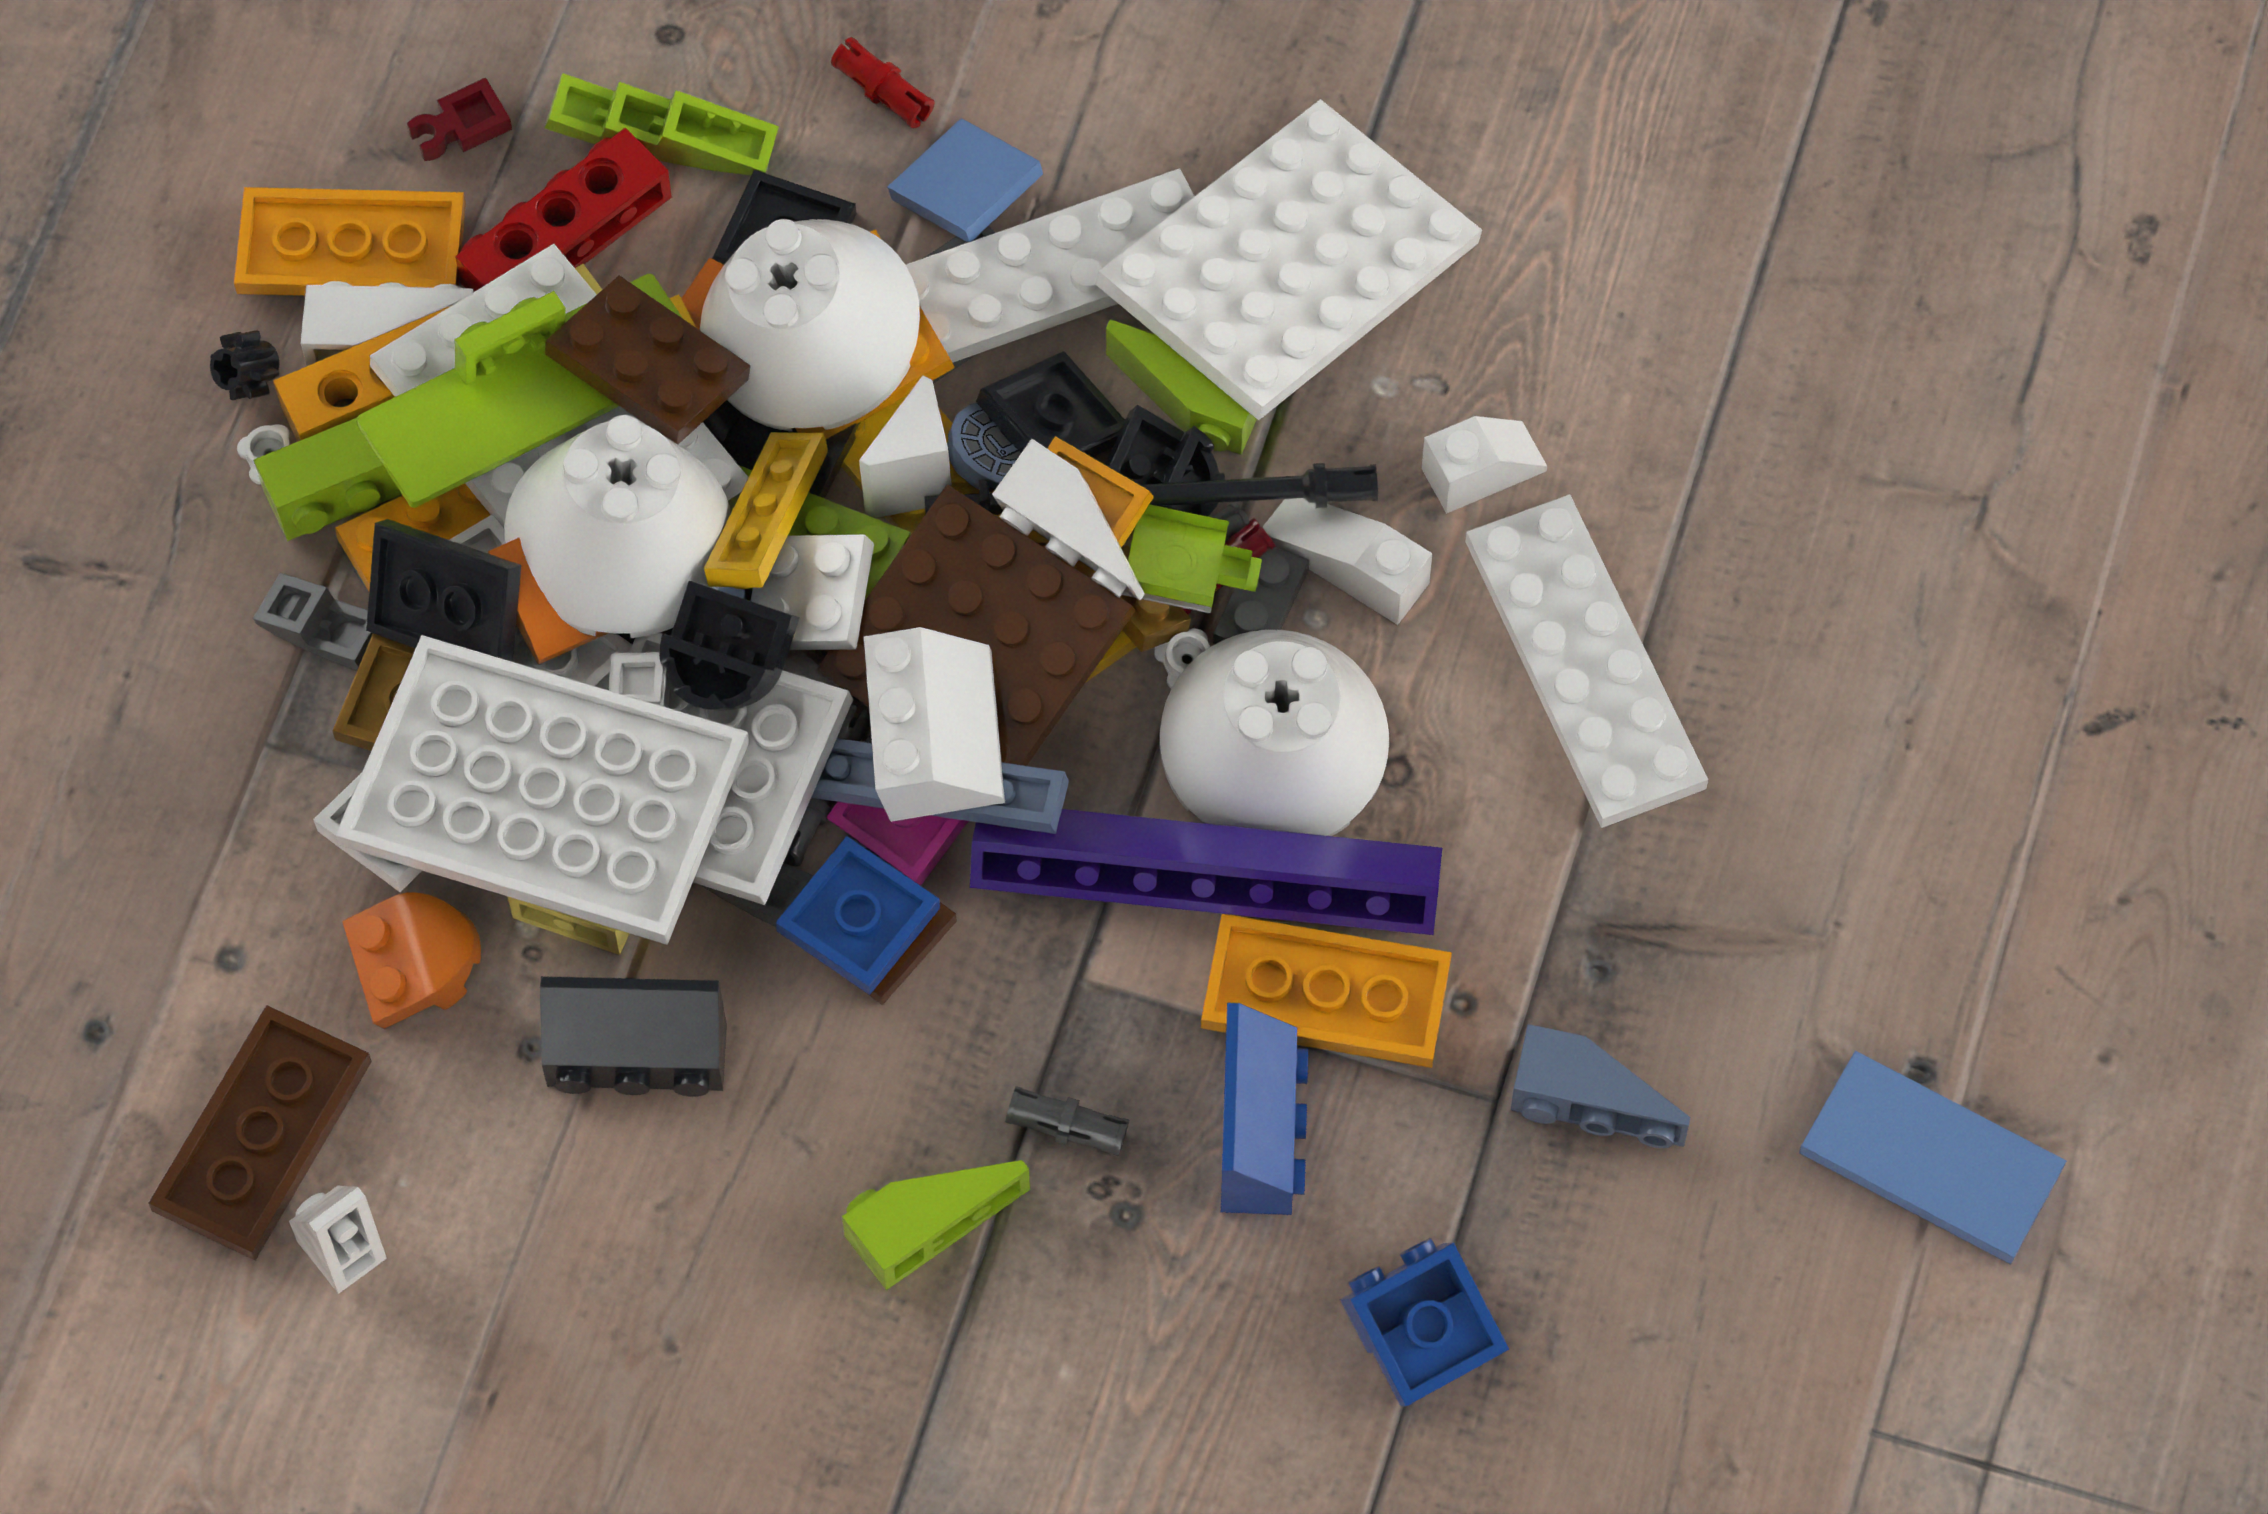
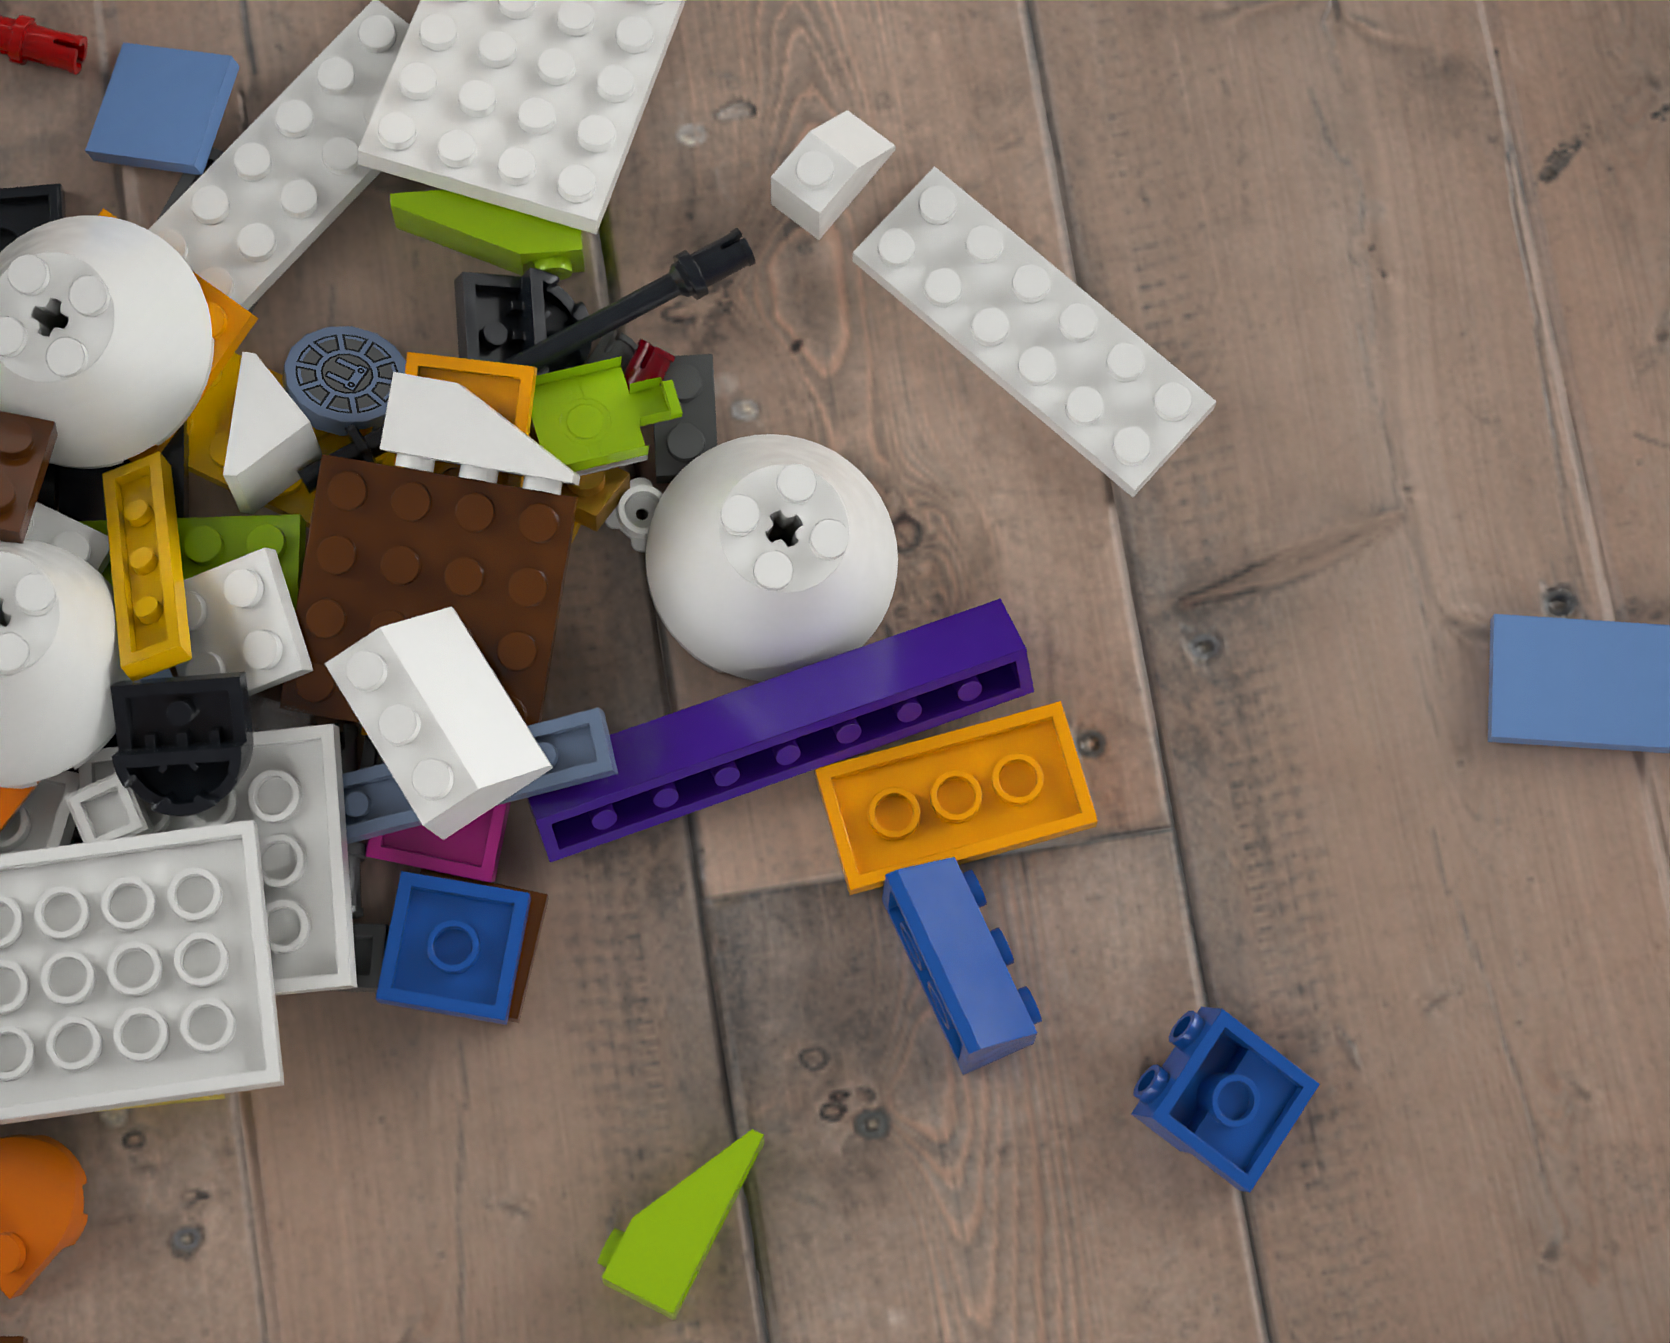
camera: 30 degrees left, 10 degrees up
(632, 1035) = (289, 1190): black slope -> none
(1052, 402) = (376, 315): black tile -> none
(1067, 1121) = (769, 1058): dark grey pin -> none
(1354, 554) = (752, 328): white slope -> none
(1581, 1084) = (1252, 775): sand blue slope -> none

